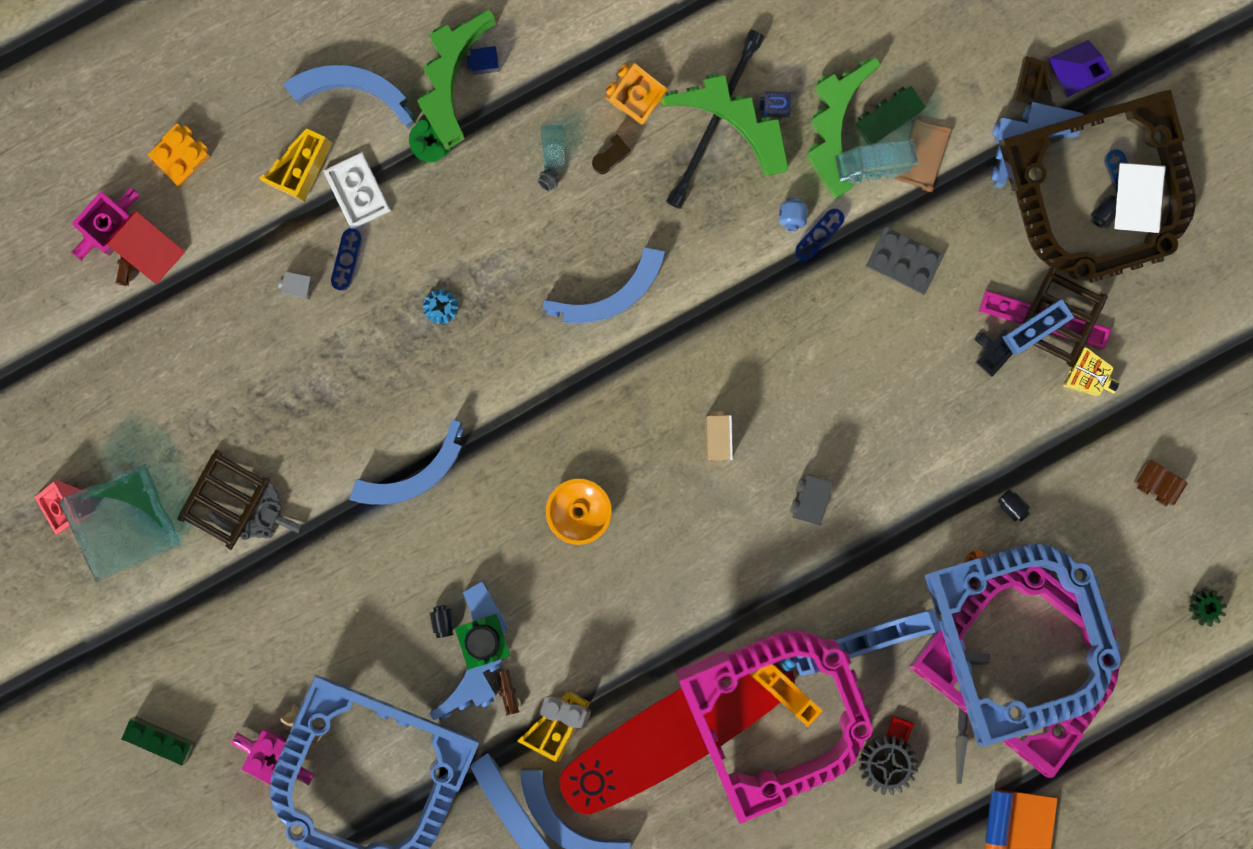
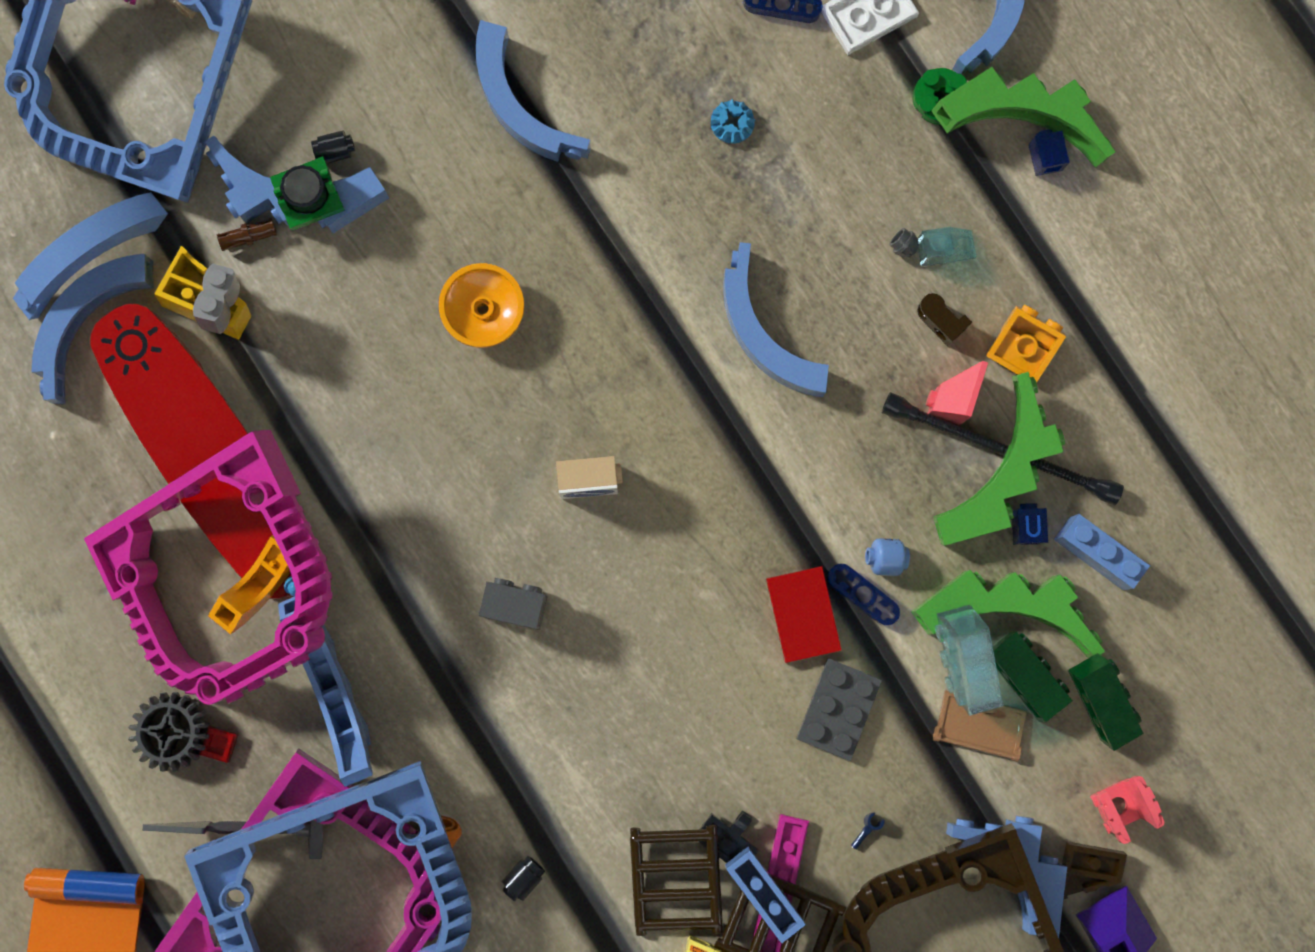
camera: 85 degrees right, 5 degrees down
(673, 150) = (957, 397): none -> coral slope
(800, 51) = (1101, 552): none -> medium blue brick
(831, 281) = (803, 614): none -> red tile
(913, 60) = (1106, 701): none -> dark green brick
(991, 43) = (1138, 804): none -> coral piece
(995, 247) = (867, 830): none -> dark blue hand
(1011, 418) = (710, 864): none -> dark brown bar

